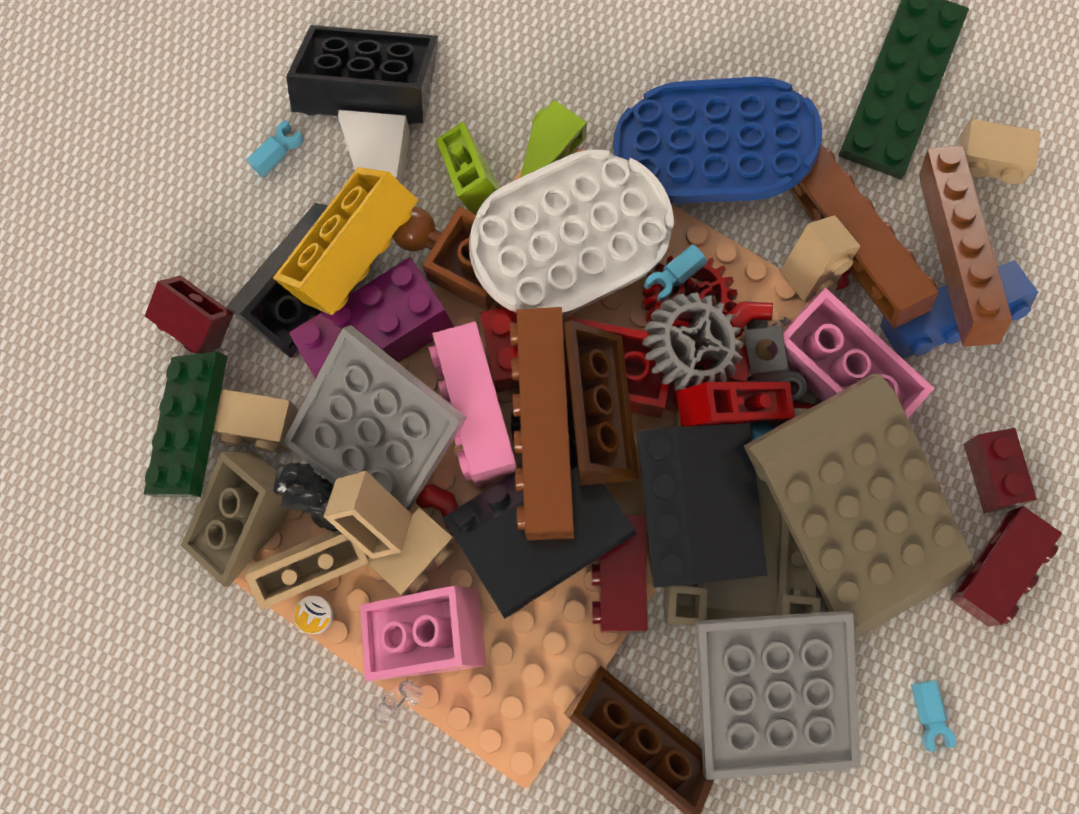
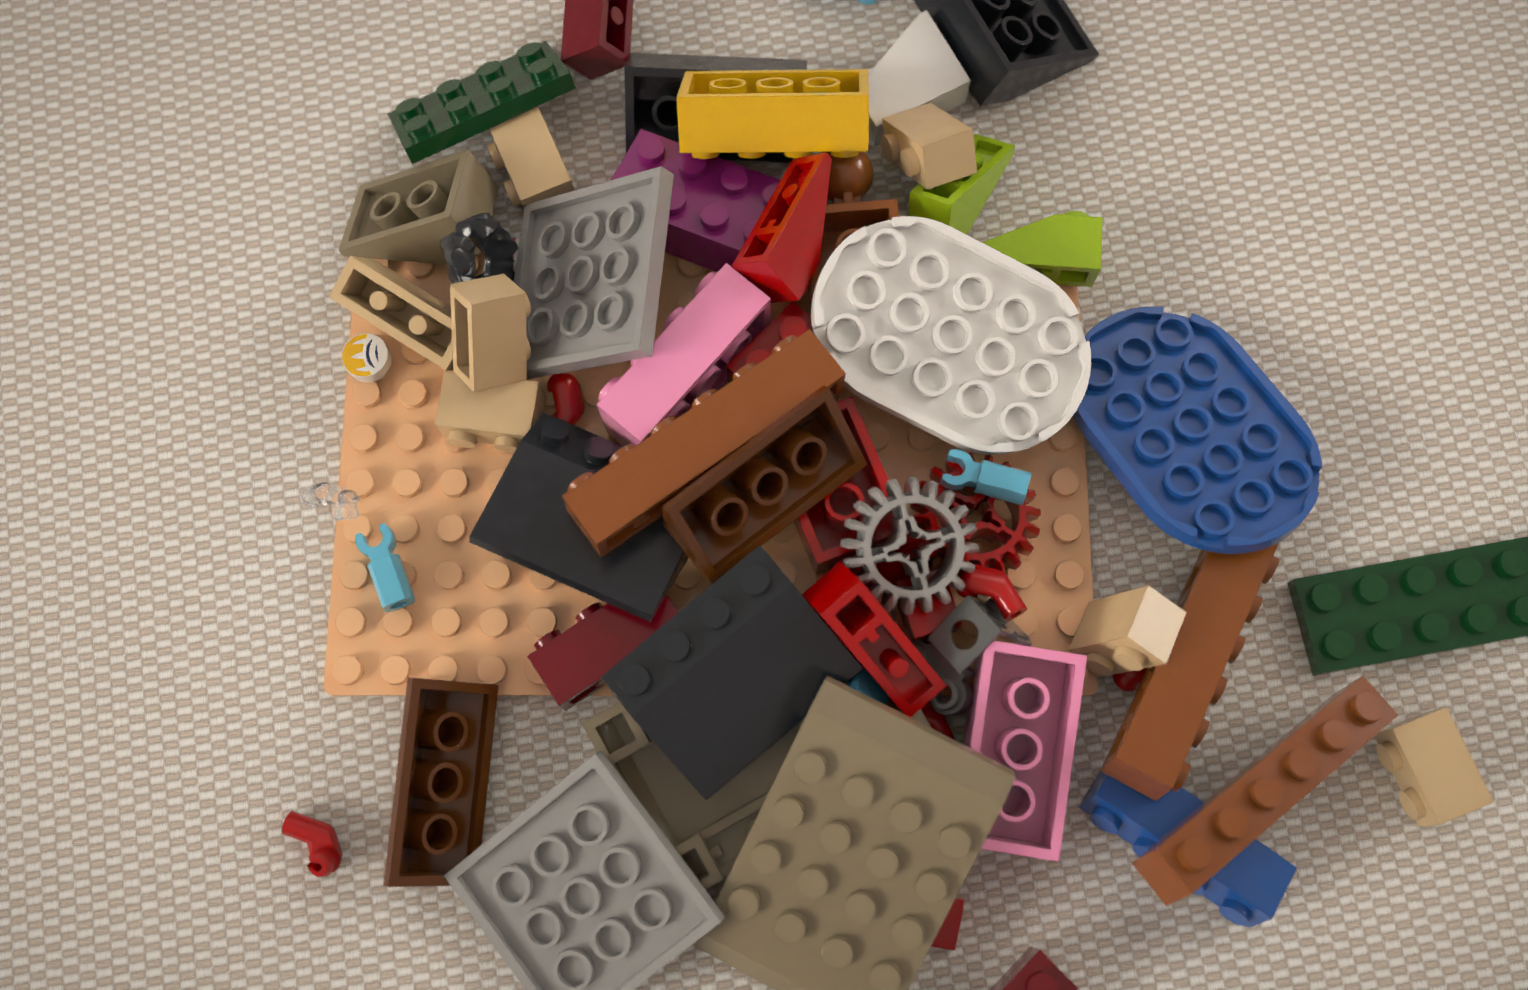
camera: 55 degrees right, 0 degrees up
(423, 633) = (413, 478): bright pink slope -> none
(434, 165) = (929, 145): none -> tan brick
(438, 283) = (789, 232): none -> red slope
(475, 692) = (387, 571): none -> medium azure bar

